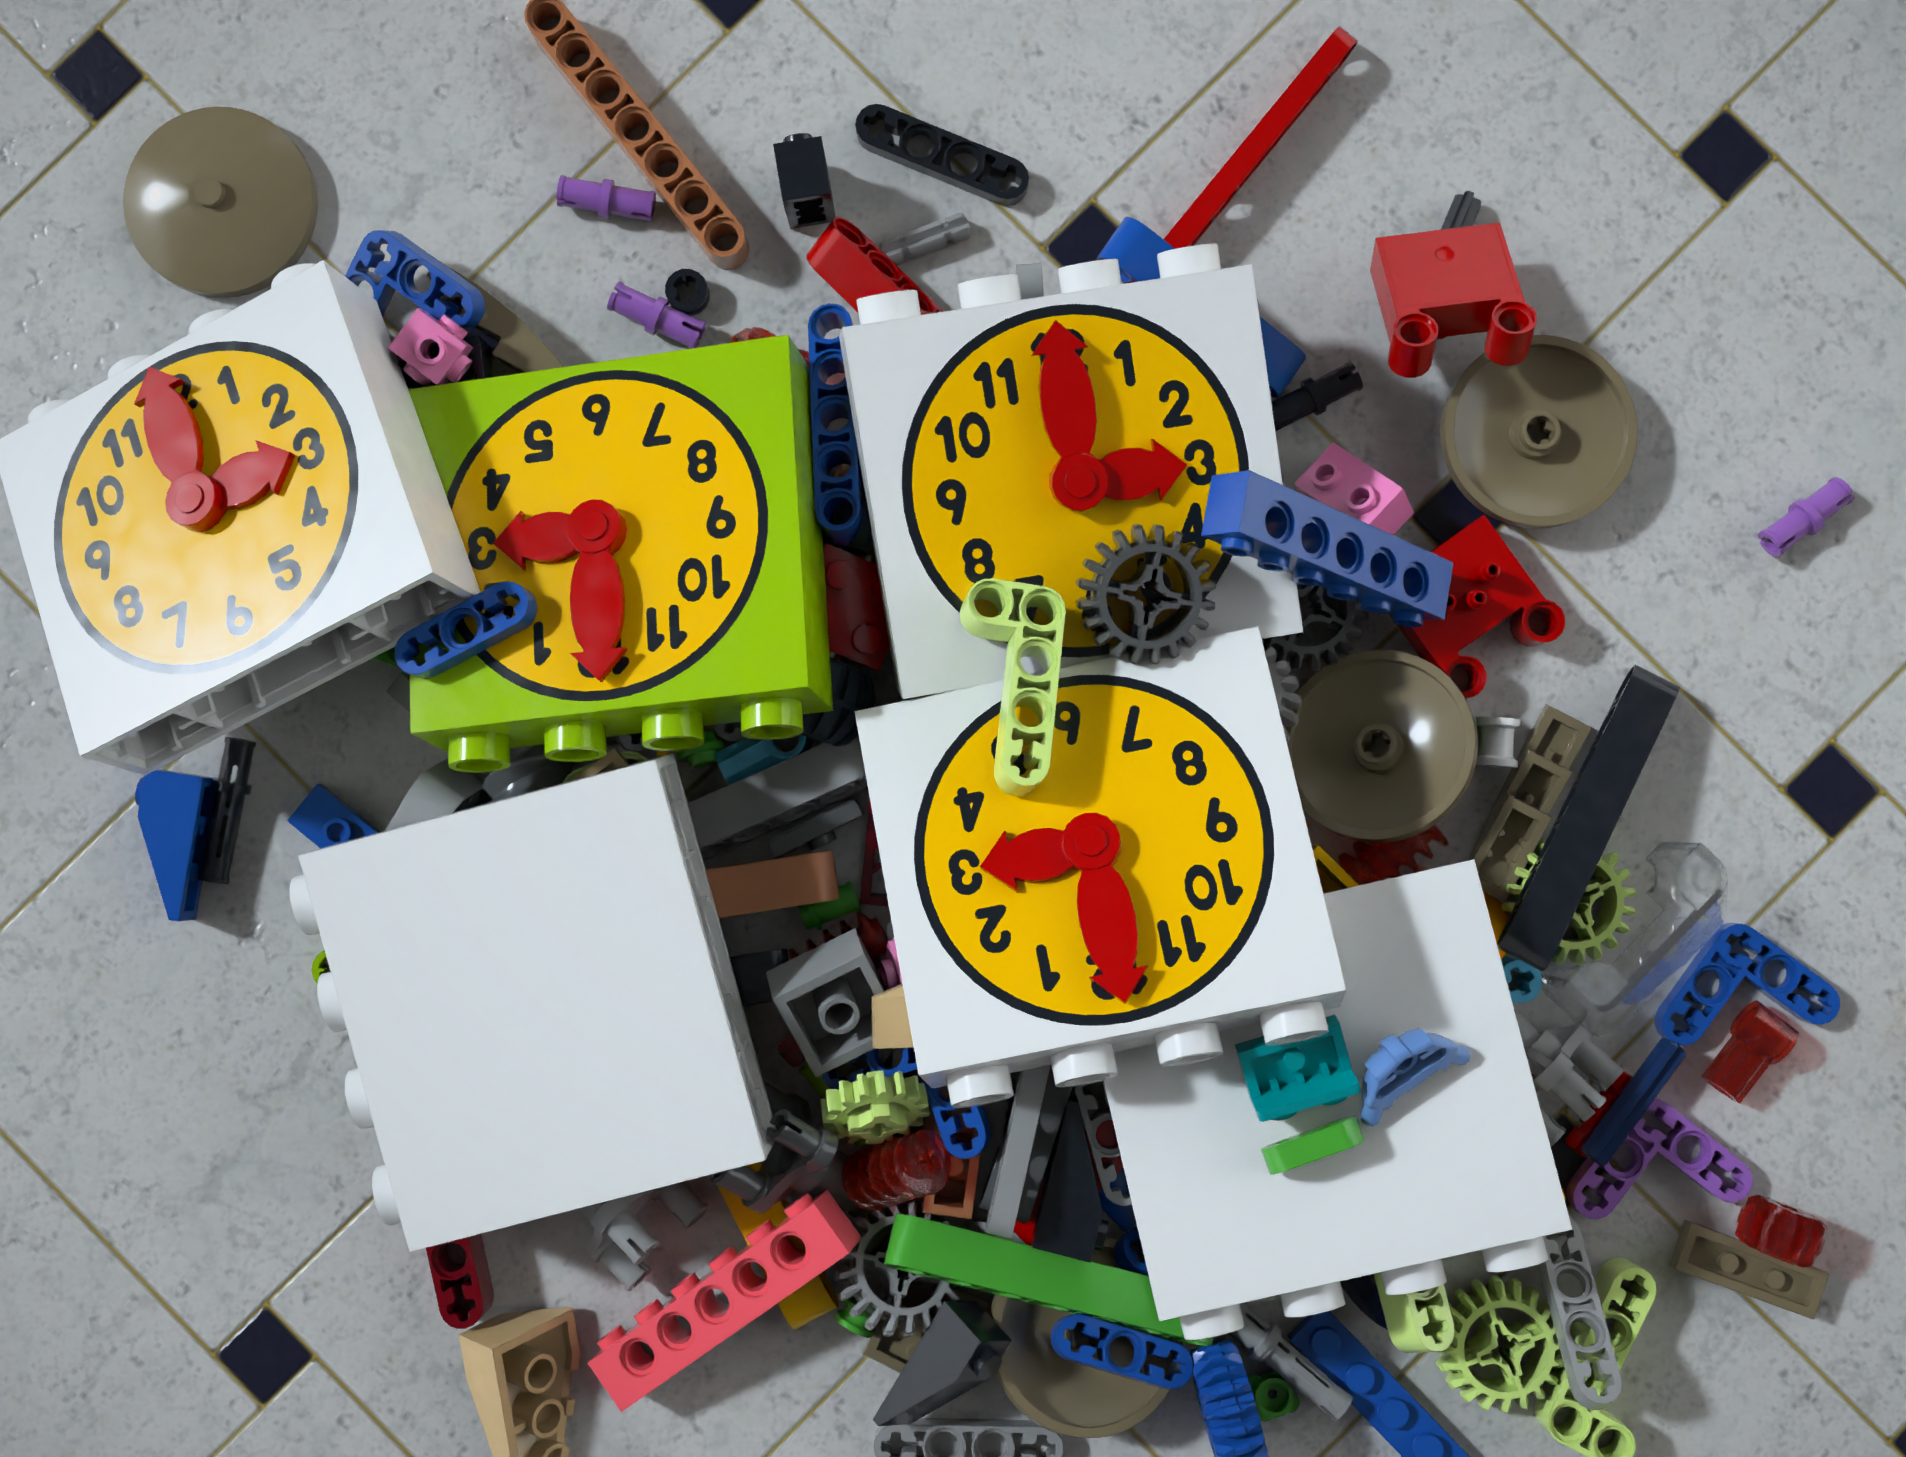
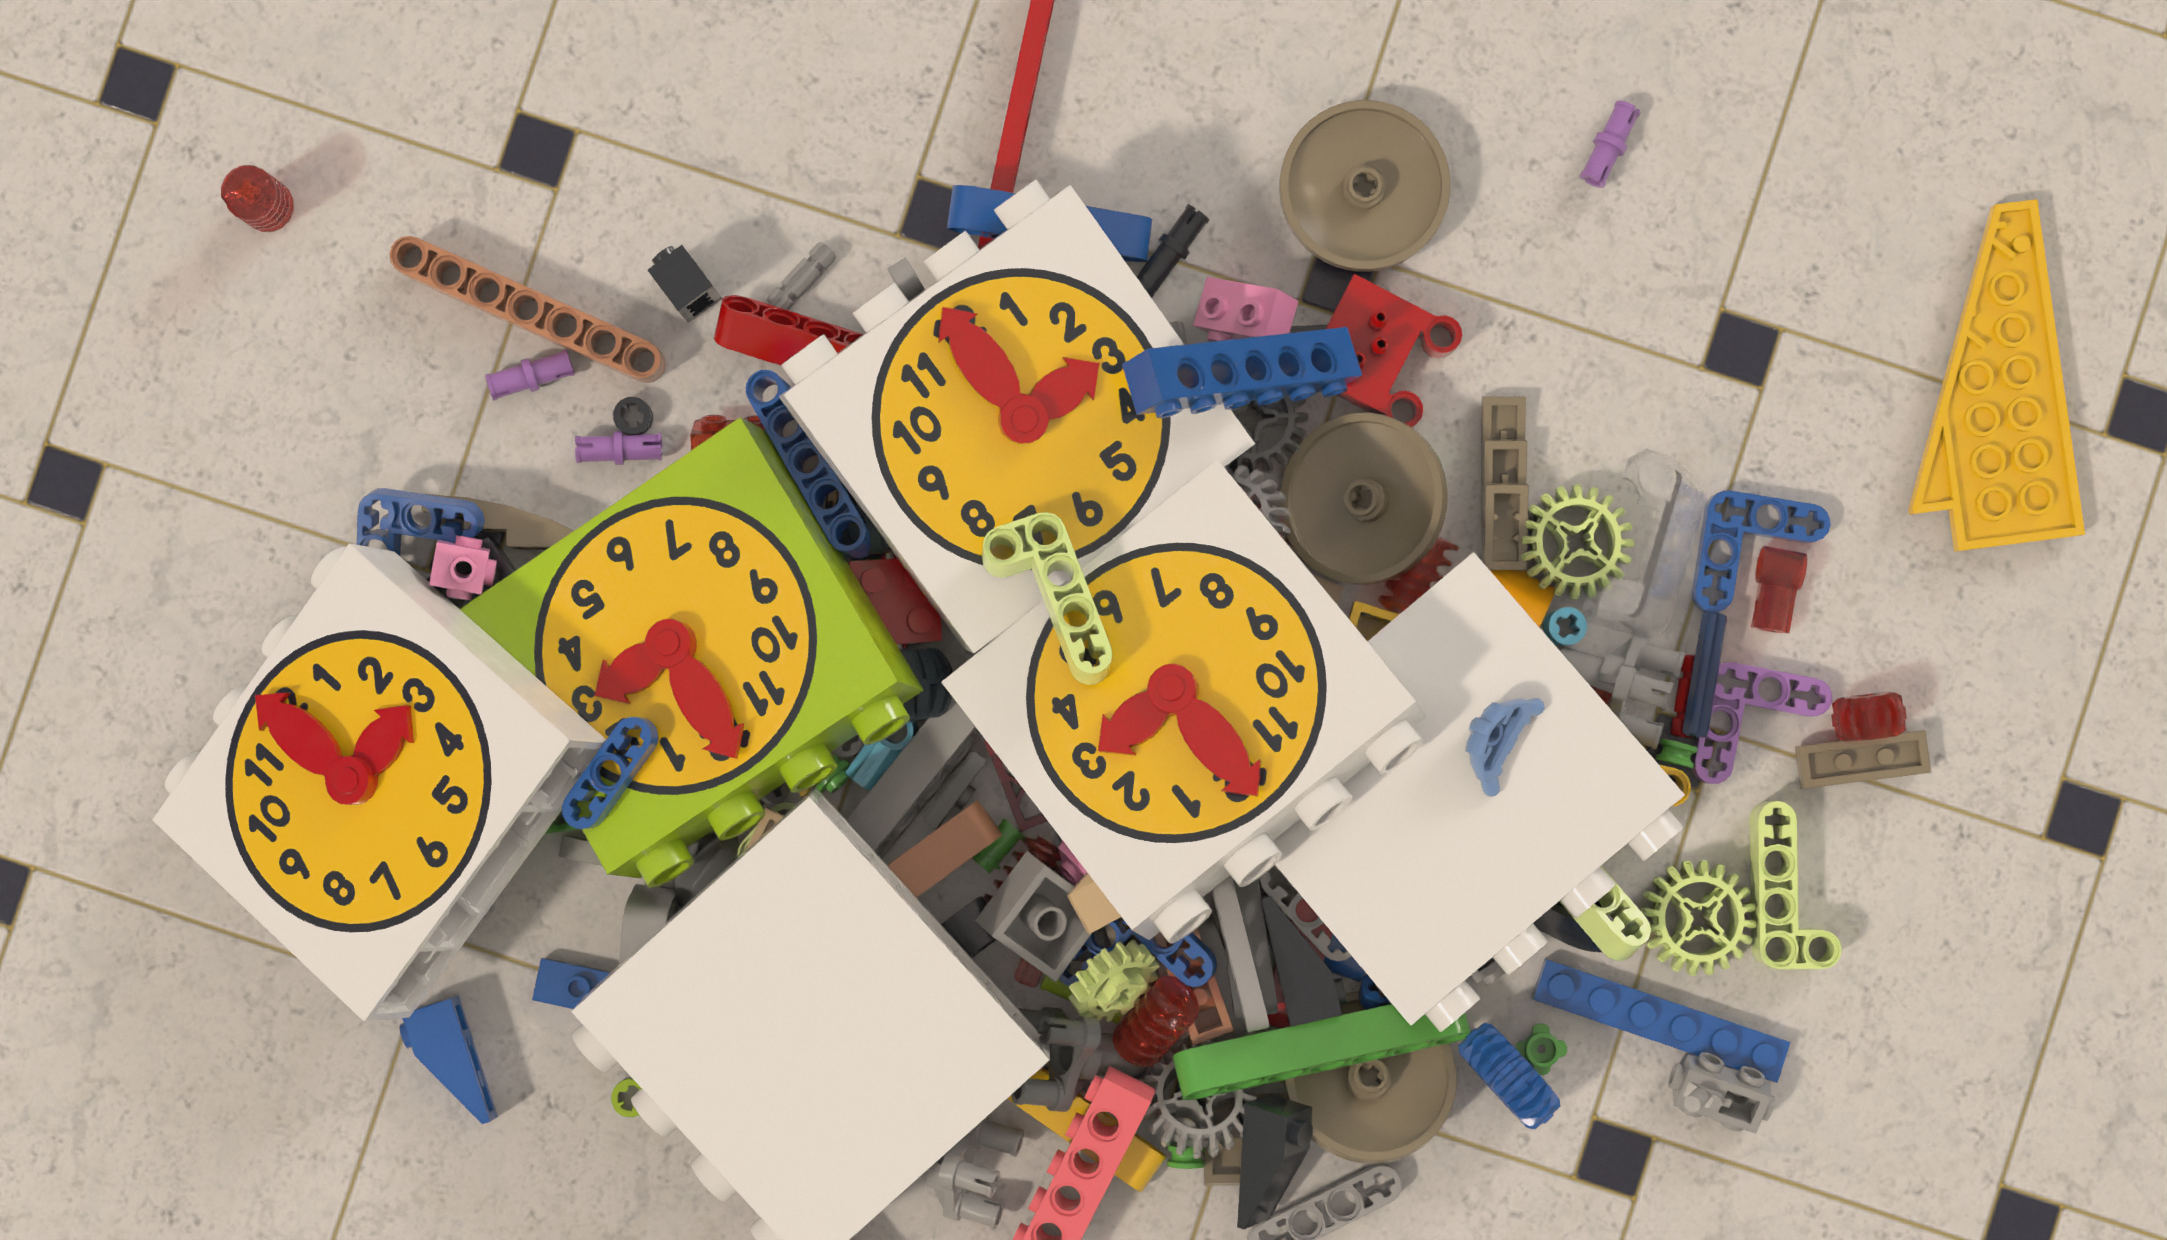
camera: 30 degrees left, 0 degrees up
(214, 866) = (465, 967): black pin -> none
(220, 202) = (220, 534): dark tan dish -> none
(945, 148) = (779, 196): black beam -> none
(1148, 570) = (1114, 460): dark grey gear -> none
(1159, 1348) = (1436, 1078): blue beam -> none
(1266, 1344) = (1515, 1012): light grey pin -> none
(1297, 1074) = (1419, 783): teal bracket -> none
(1312, 1145) = (1457, 832): bright green beam -> none
(1450, 286) = (1235, 109): red piece -> none
(1497, 742) = (1457, 447): white bush -> none
(1566, 1166) = (1676, 753): none -> bright green bush
(1583, 1309) = (1735, 861): light grey beam -> none
(1587, 818) = (1554, 470): black beam -> none

